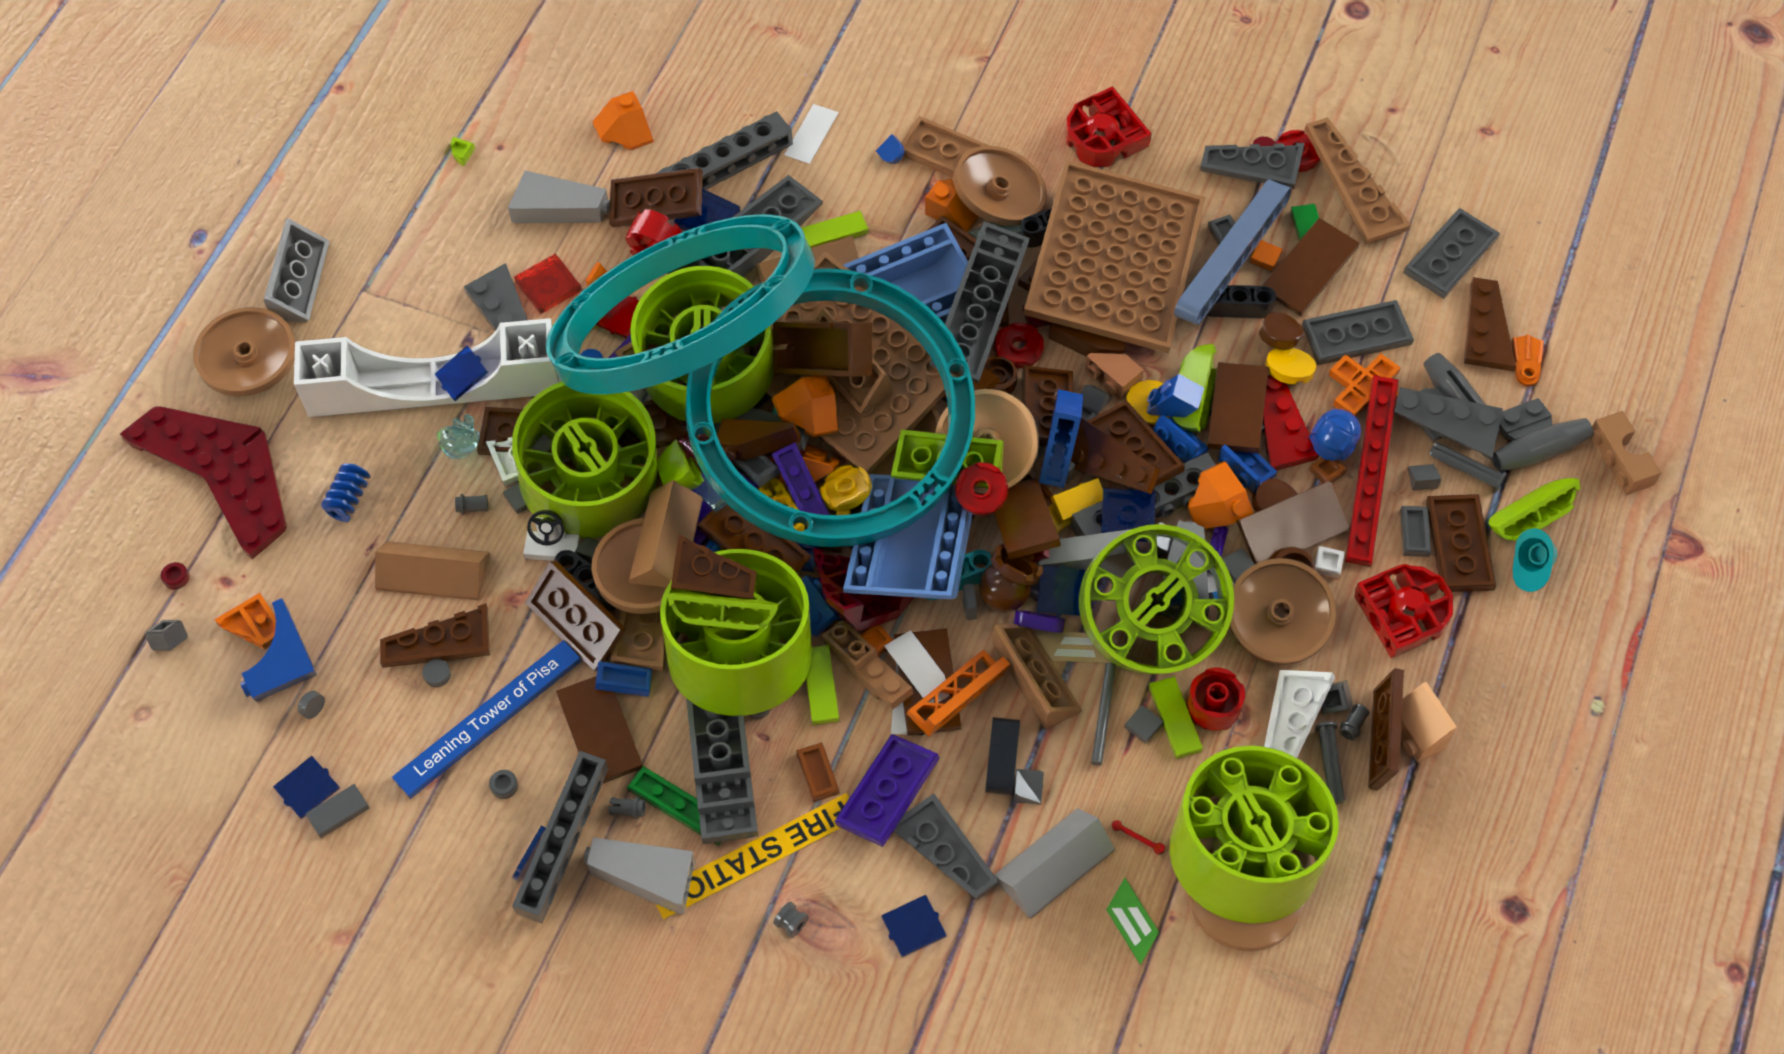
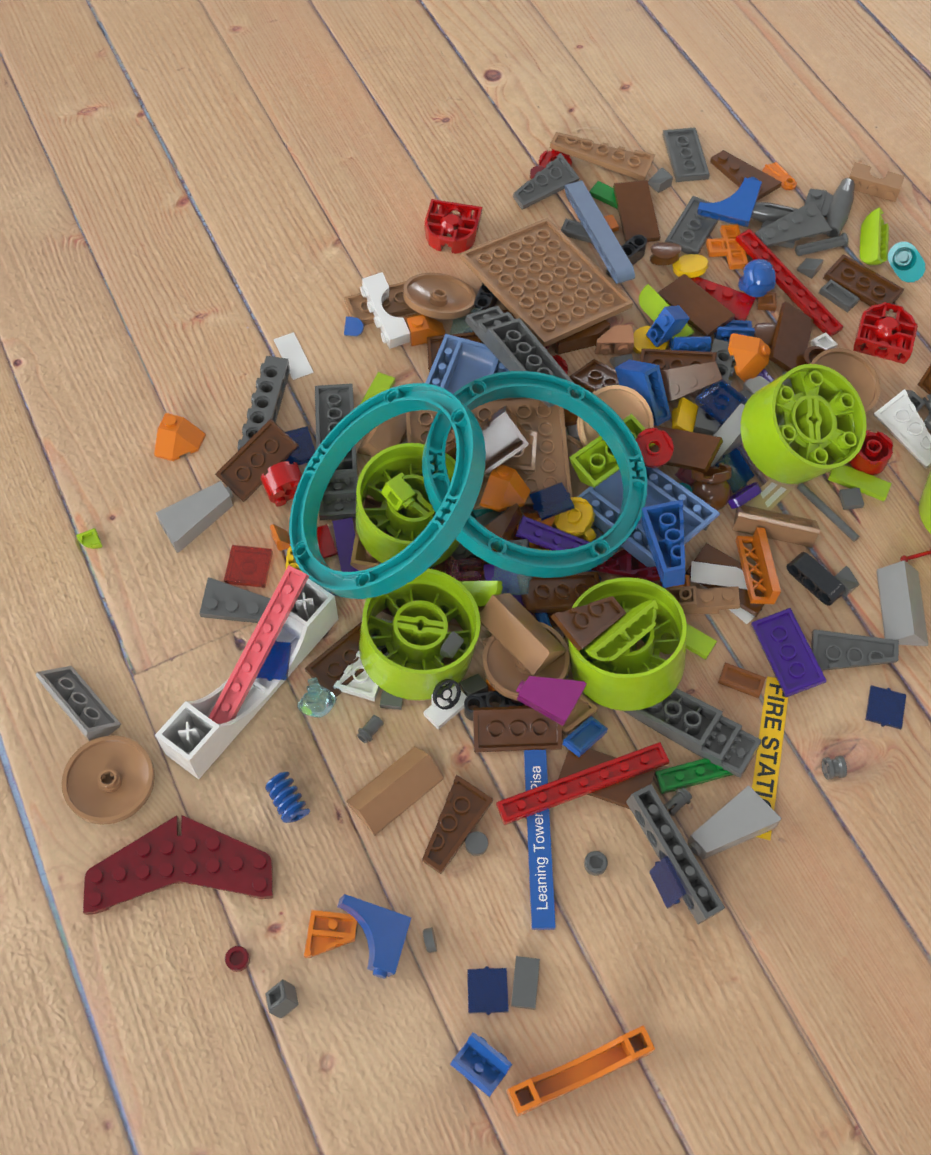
camera: 50 degrees left, 0 degrees up
(230, 829) = (481, 1064): none -> blue bracket
(257, 898) = (581, 1071): none -> orange arch
(452, 346) = (259, 646): none -> coral plate
(572, 712) = (582, 783): none -> red tile
(588, 486) = (451, 645): none -> dark grey slope
(615, 611) = (551, 696): none -> magenta slope
(687, 314) = (398, 492): none -> lime brick
(841, 455) = (551, 501): none -> clear blue piece
(865, 572) = (665, 535): none -> blue wedge
(943, 133) = (393, 328): none -> white arch
(1382, 257) = (660, 180): none -> dark grey slope
(1417, 346) = (737, 207): none -> blue arch

